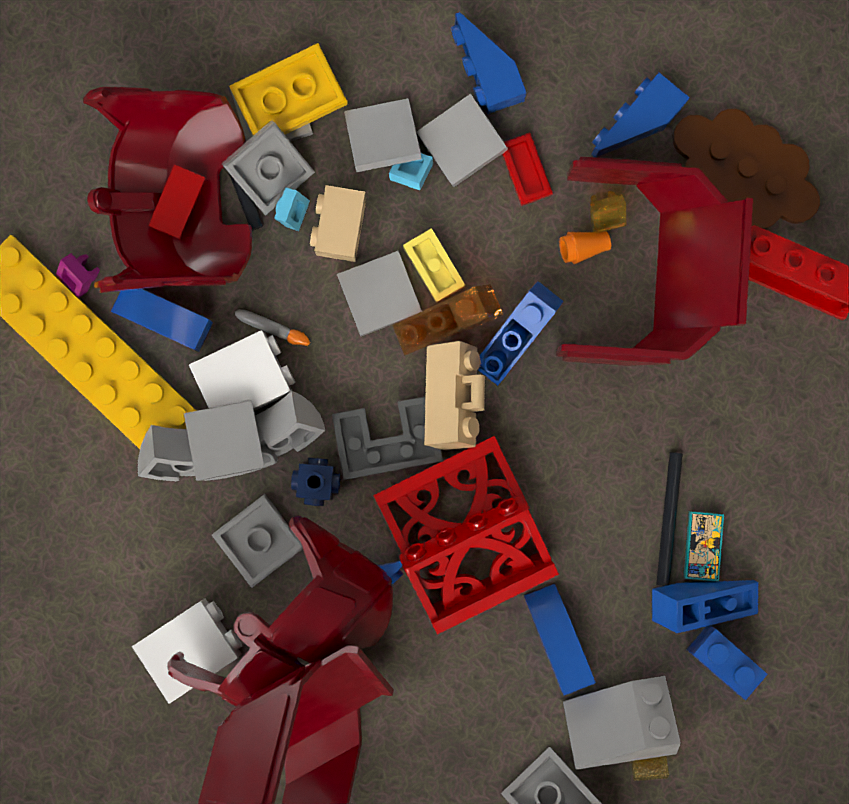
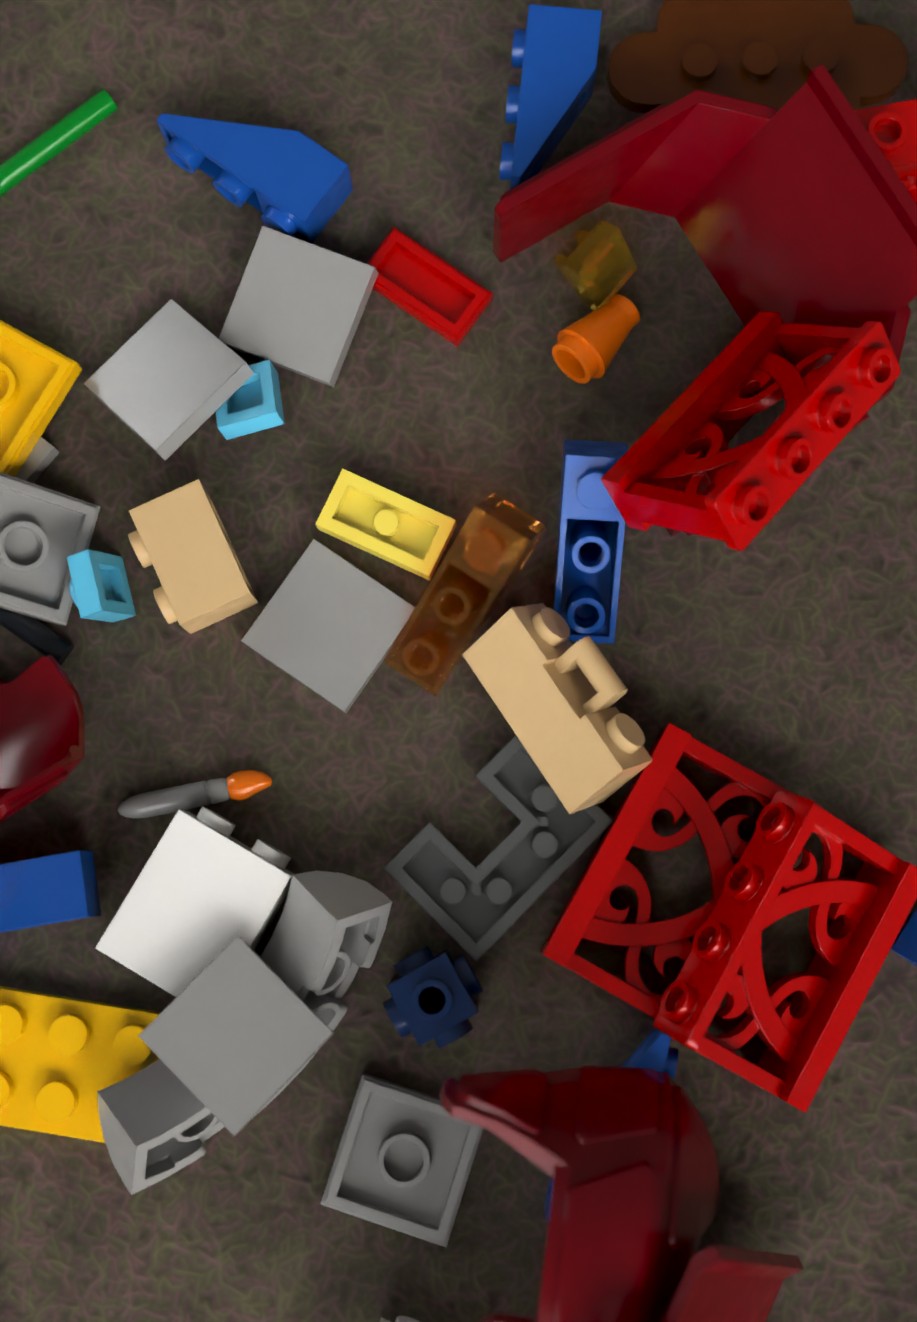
camera: 30 degrees left, 5 degrees down
(660, 335) = (827, 387): none -> red fence

